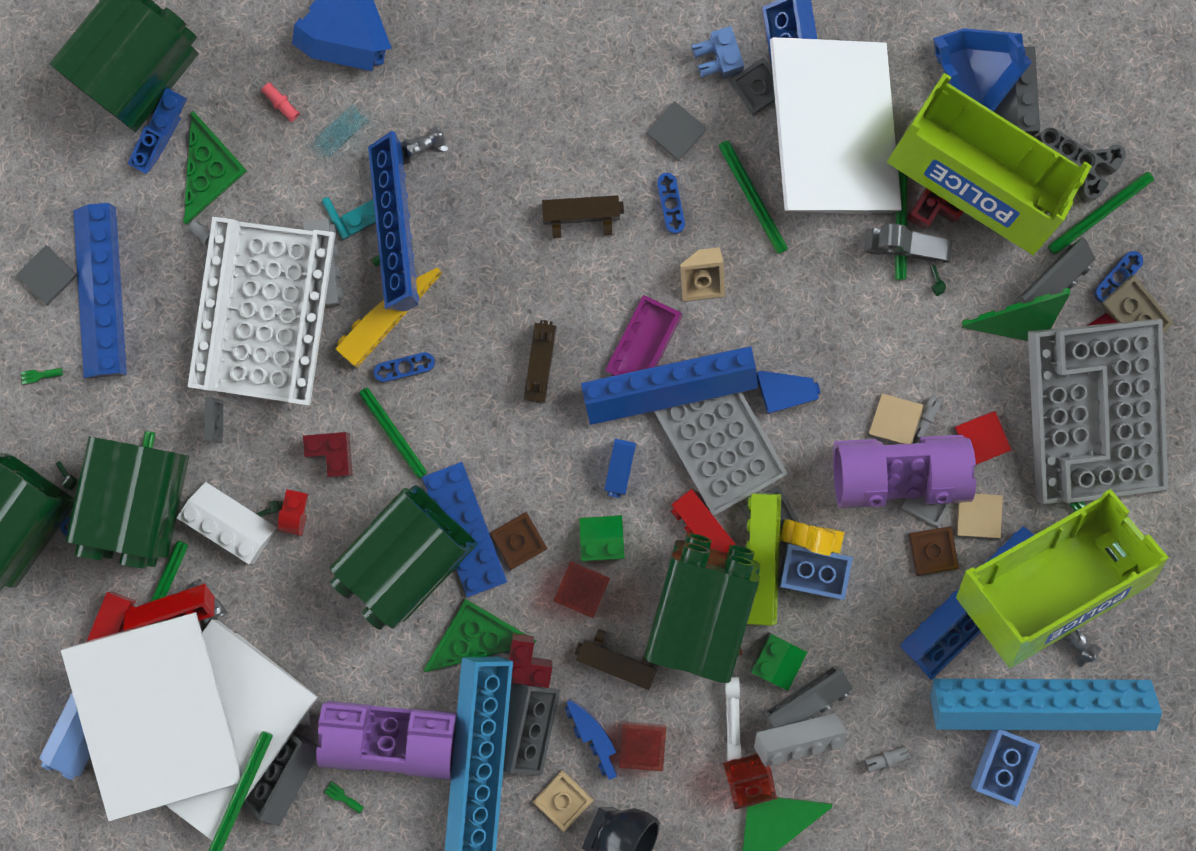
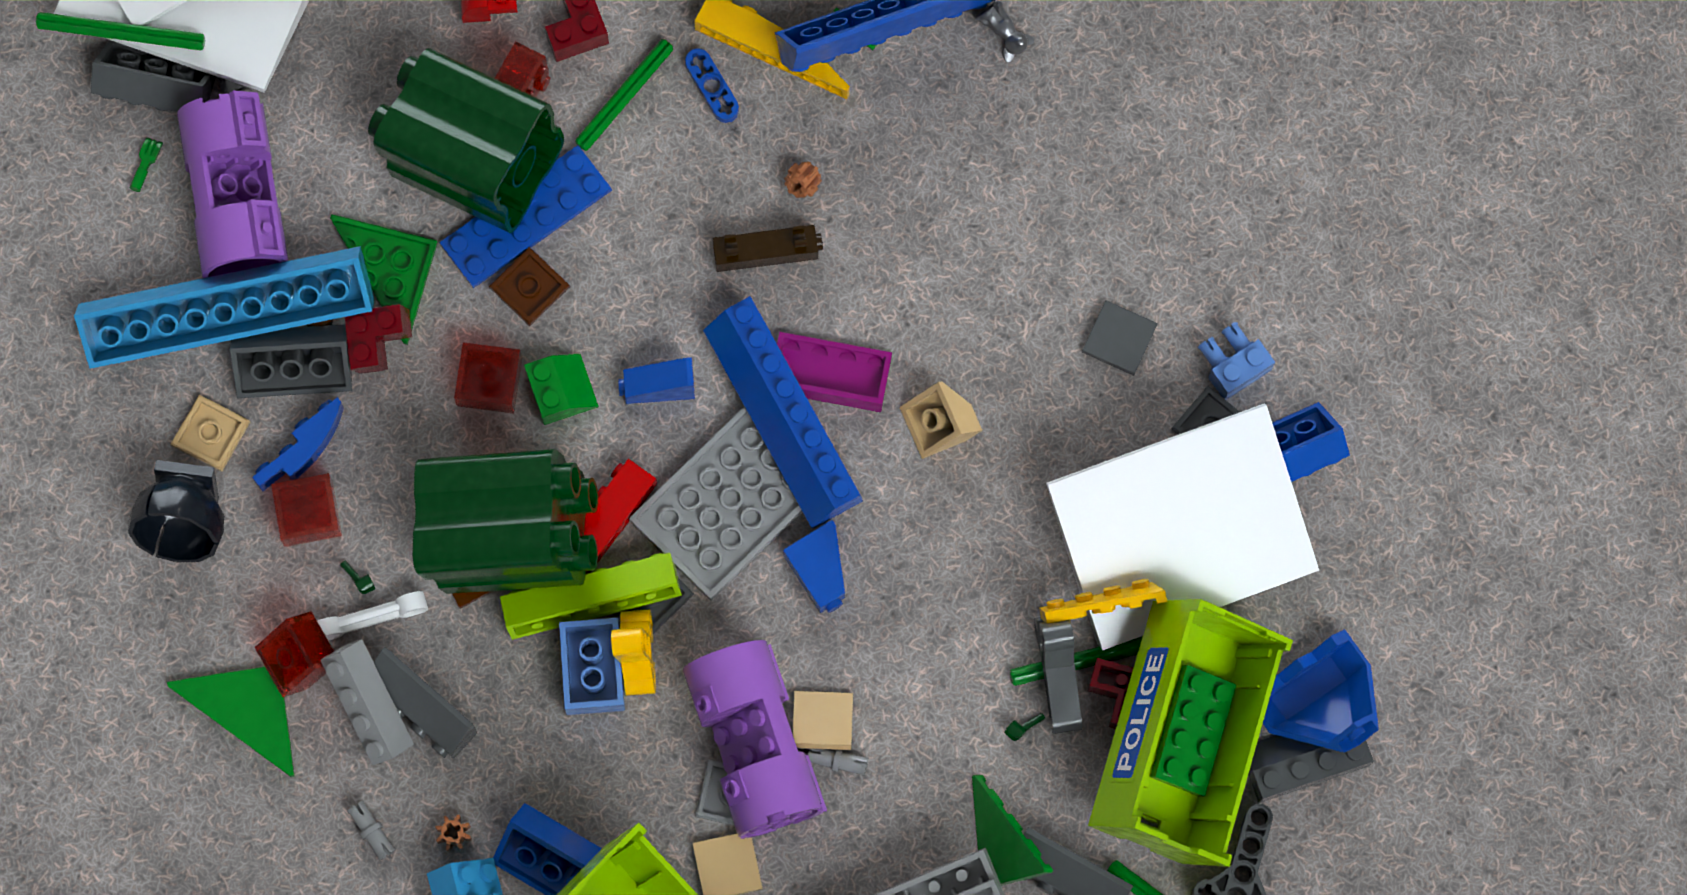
camera: 65 degrees right, 10 degrees down
(361, 503) = (525, 70): none -> clear red brick
(496, 321) = (802, 179): none -> nougat gear
(582, 210) = (978, 244): dark brown brick -> none
(615, 663) = (404, 445): dark brown brick -> none
(668, 219) = (1044, 354): blue beam -> none
(706, 719) = (363, 584): none -> dark green hand
(753, 197) = (1062, 458): green axle -> none
(778, 661) = (462, 654): green slope -> none
(877, 196) = (1102, 603): none -> yellow wing
(910, 705) = (456, 823): none -> nougat gear
(933, 551) = (665, 816): reddish brown tile -> none
(982, 158) = (1193, 730): none -> green plate
(986, 436) = (831, 843): red tile -> none

